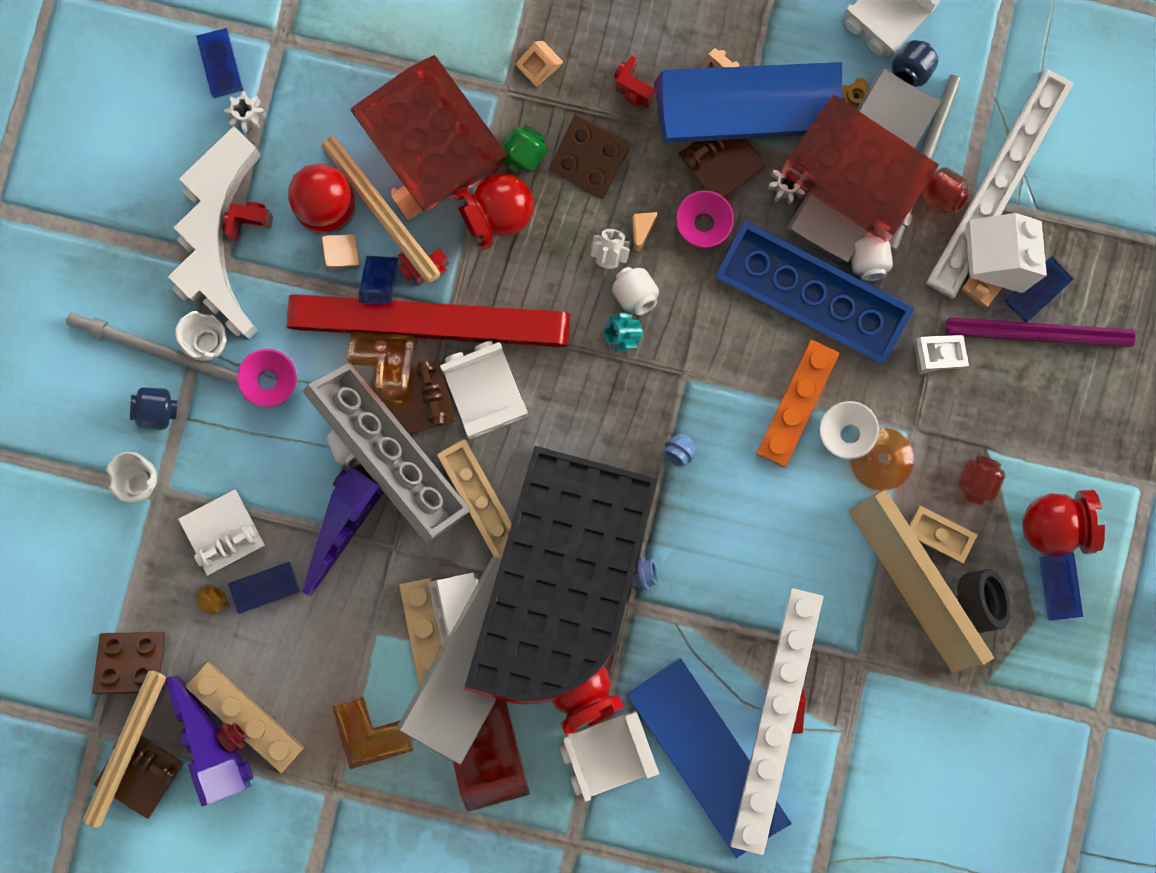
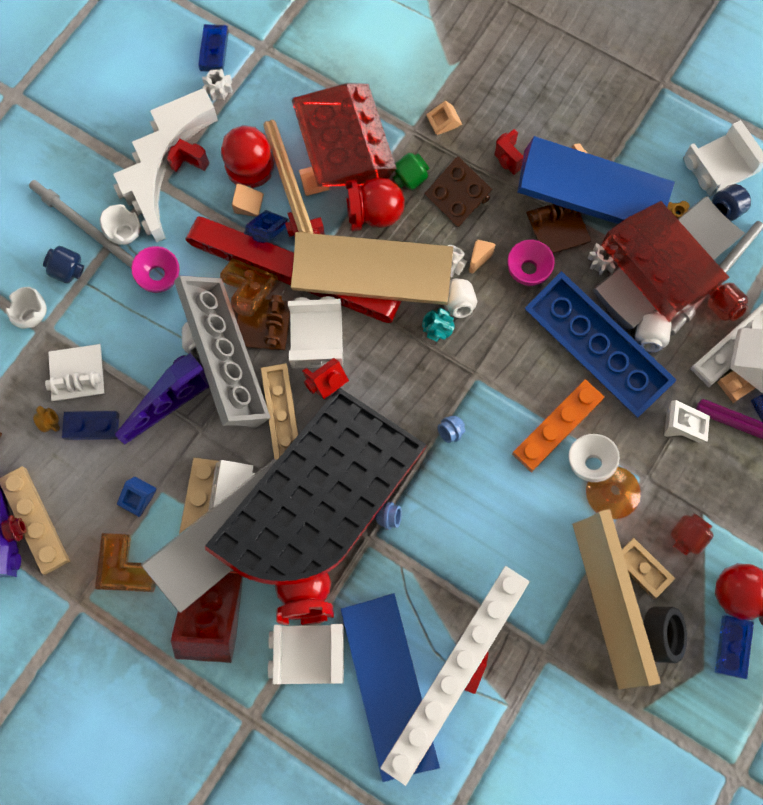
camera: 25 degrees right, 10 degrees down
(350, 649) = (136, 496): none -> blue slope
(518, 442) = (325, 379): none -> red bracket
(525, 295) = (372, 268): none -> tan arch

